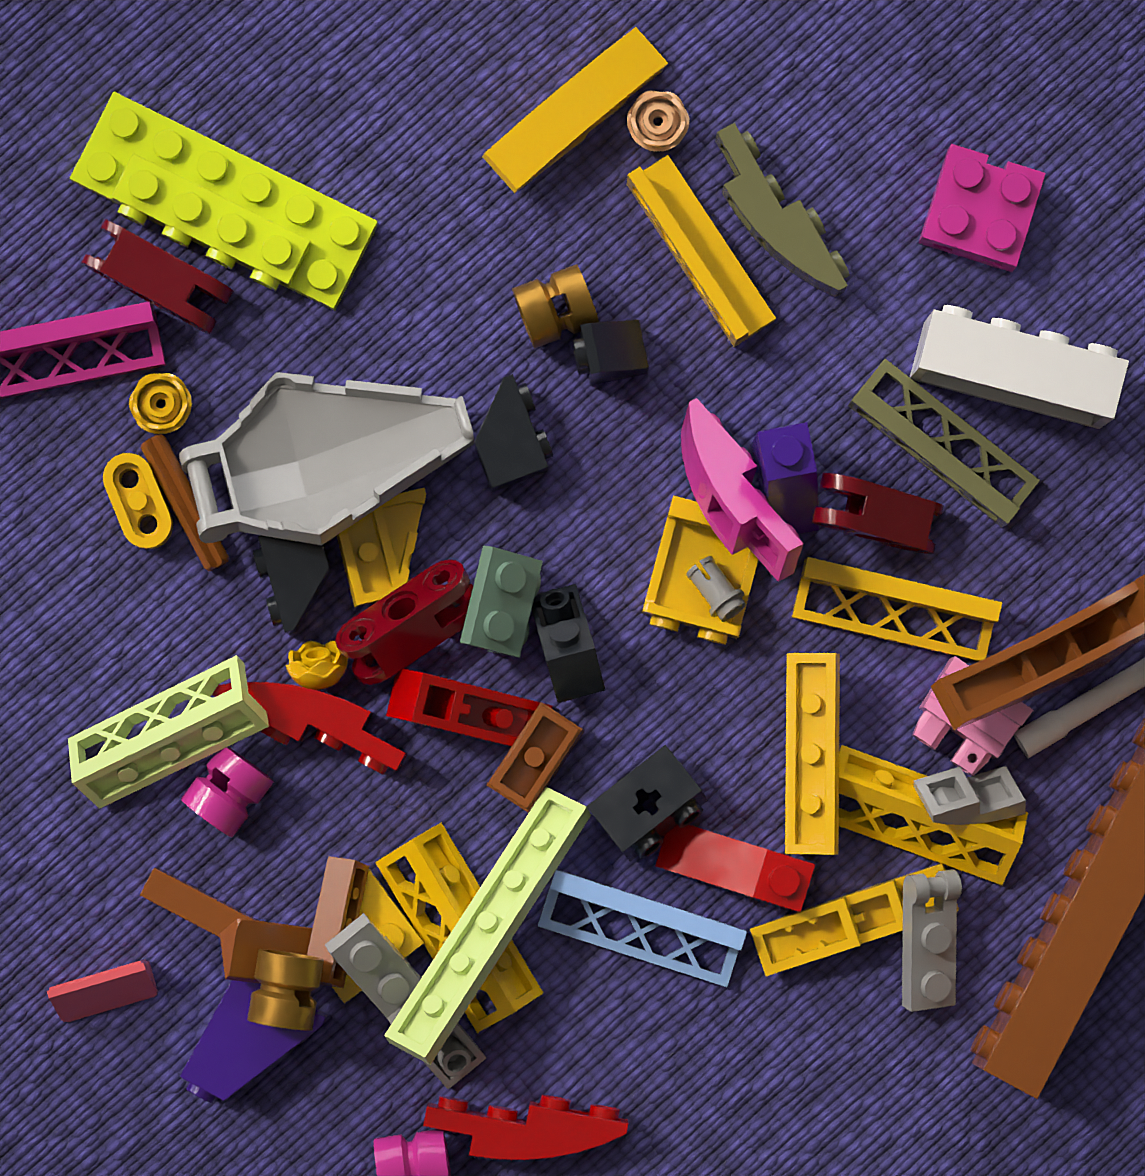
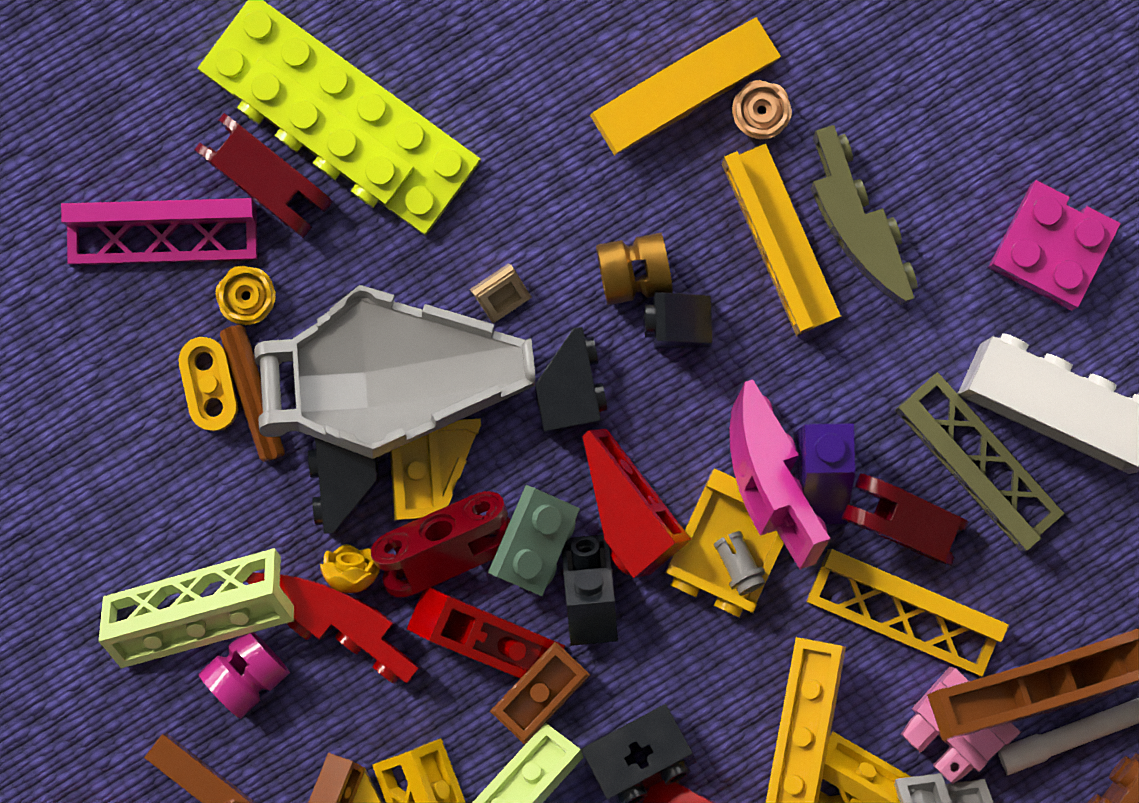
camera: 15 degrees right, 0 degrees up
(422, 355) = (500, 293): none -> tan slope
(596, 557) = (630, 511): none -> red slope

